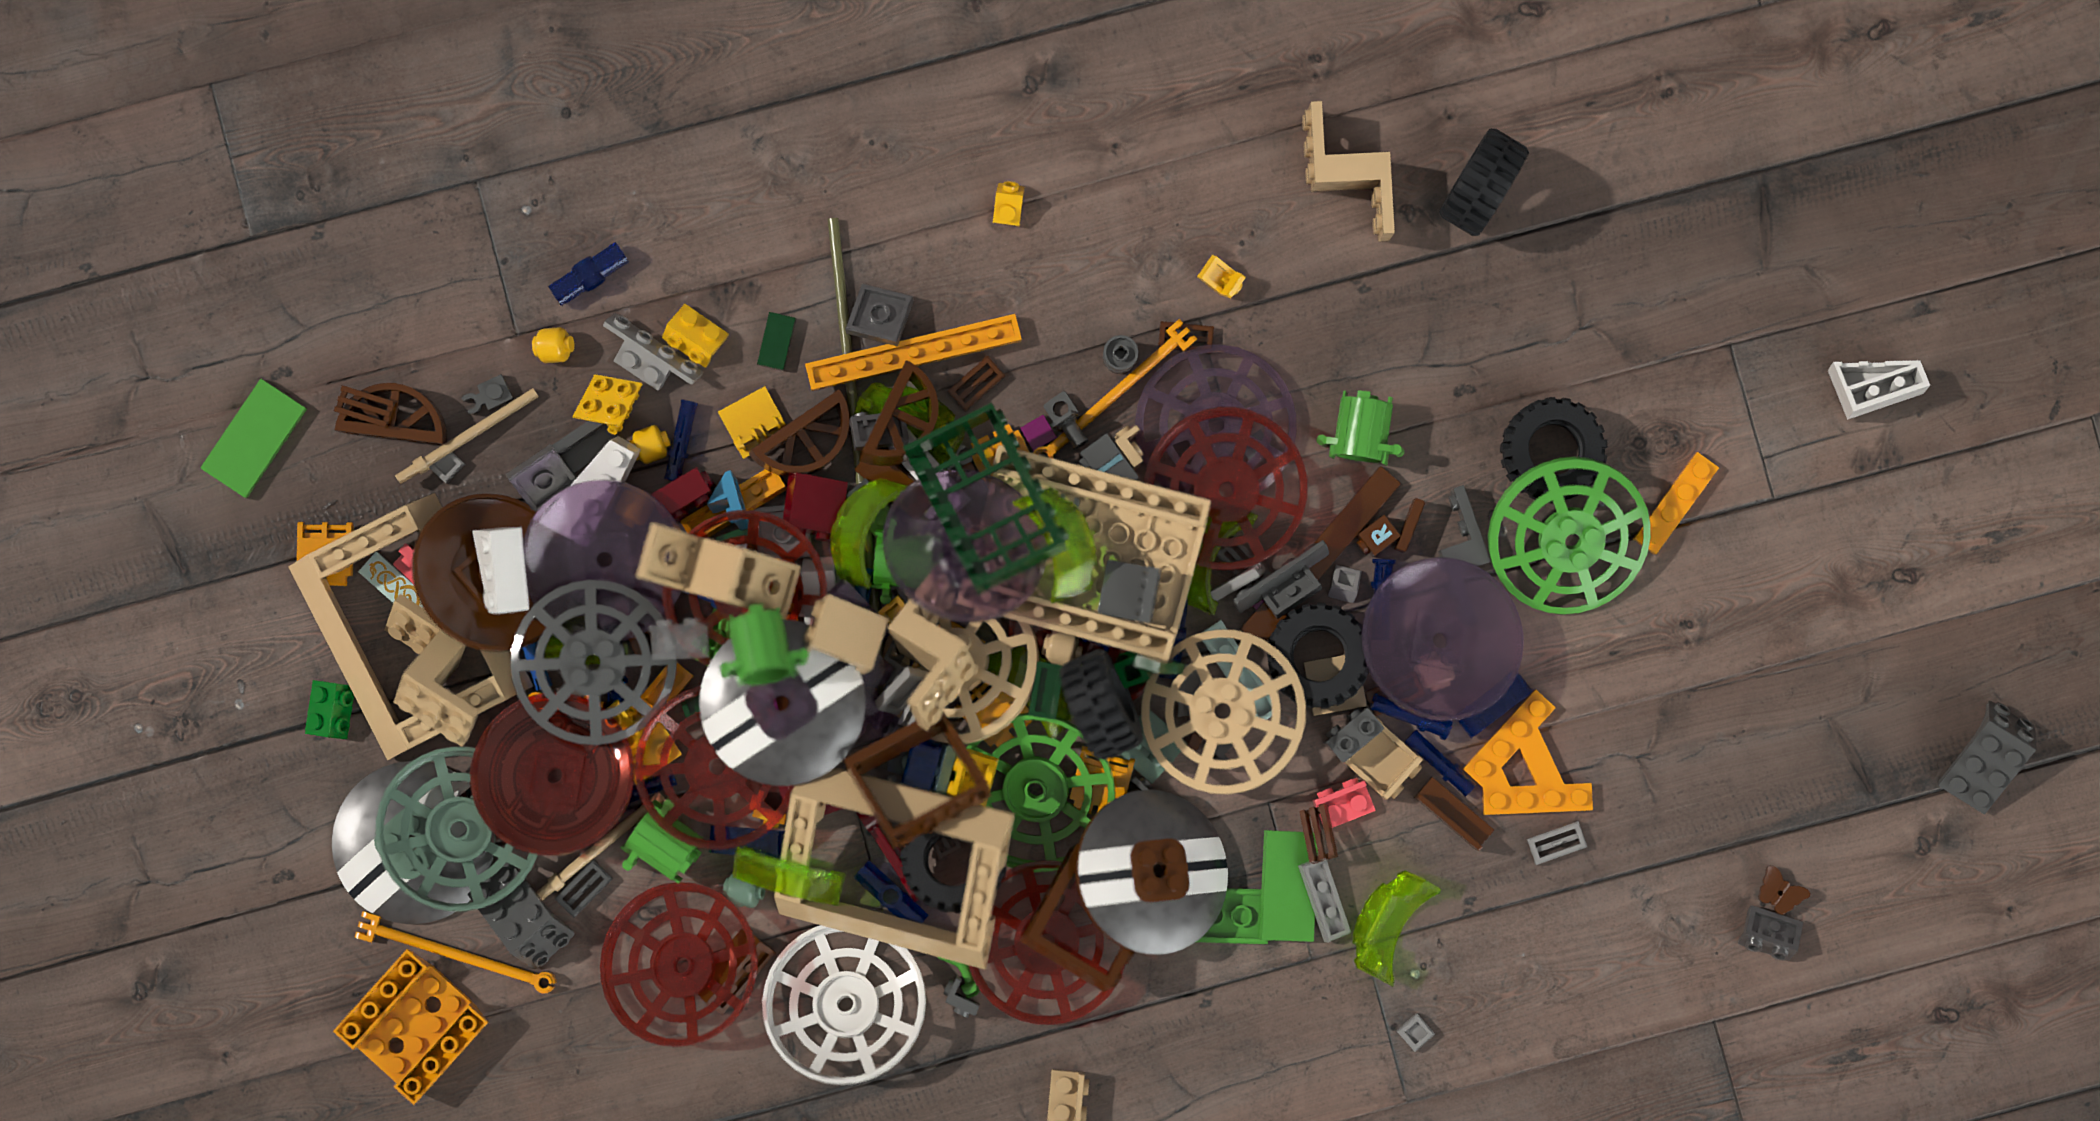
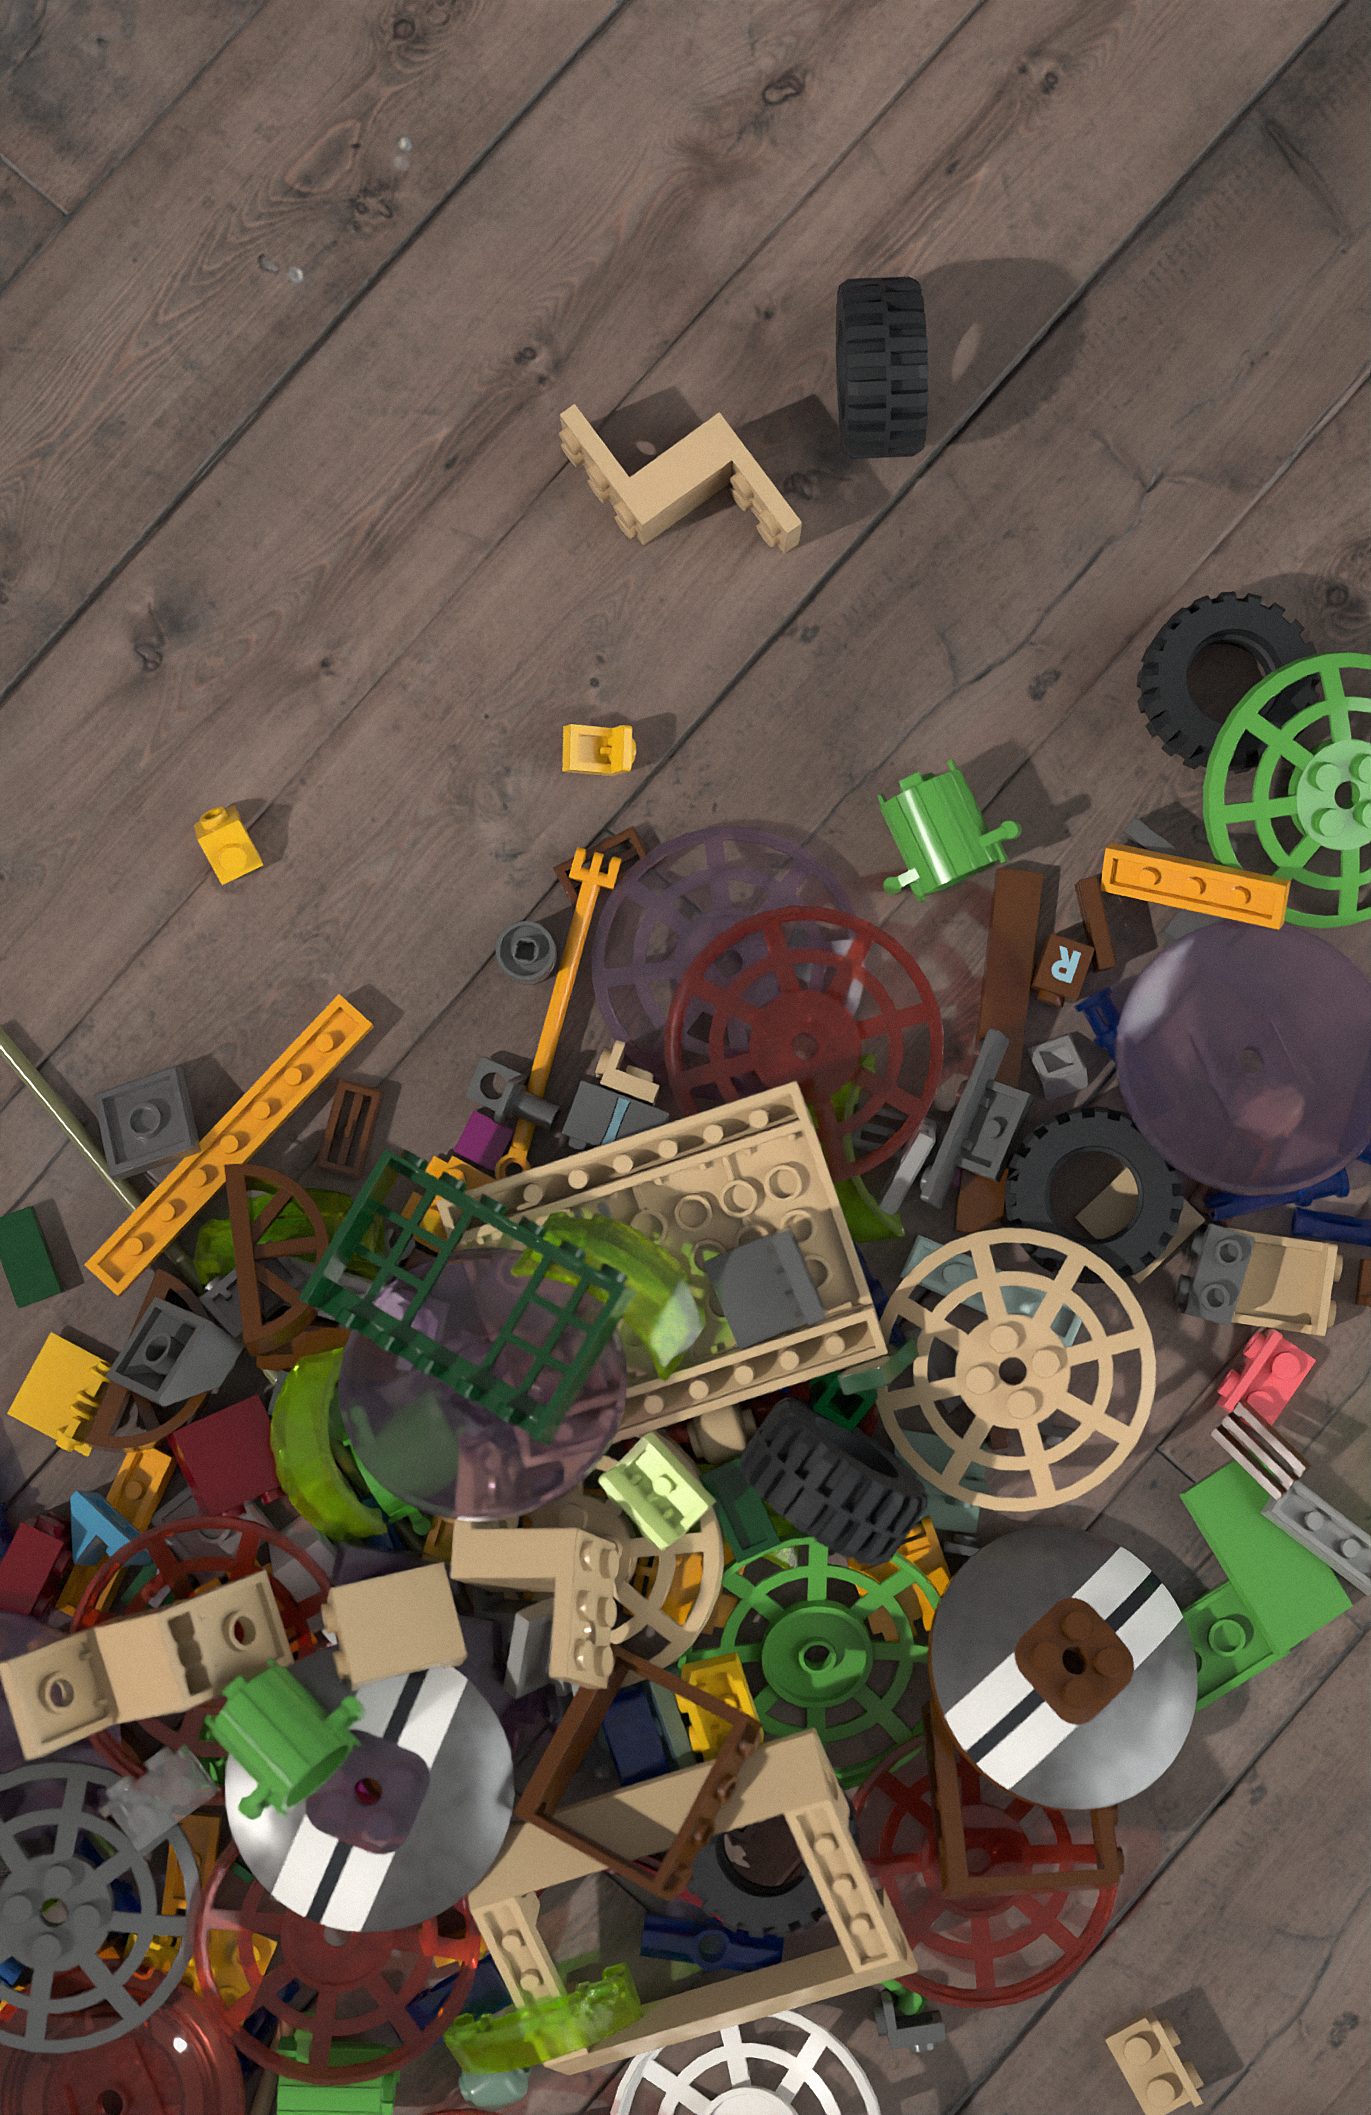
camera: 30 degrees left, 0 degrees up
(822, 435) = (174, 1355): none -> dark grey slope
(1012, 654) = (656, 1492): none -> yellowish green bracket
(1469, 537) = (1195, 885): none -> light orange plate

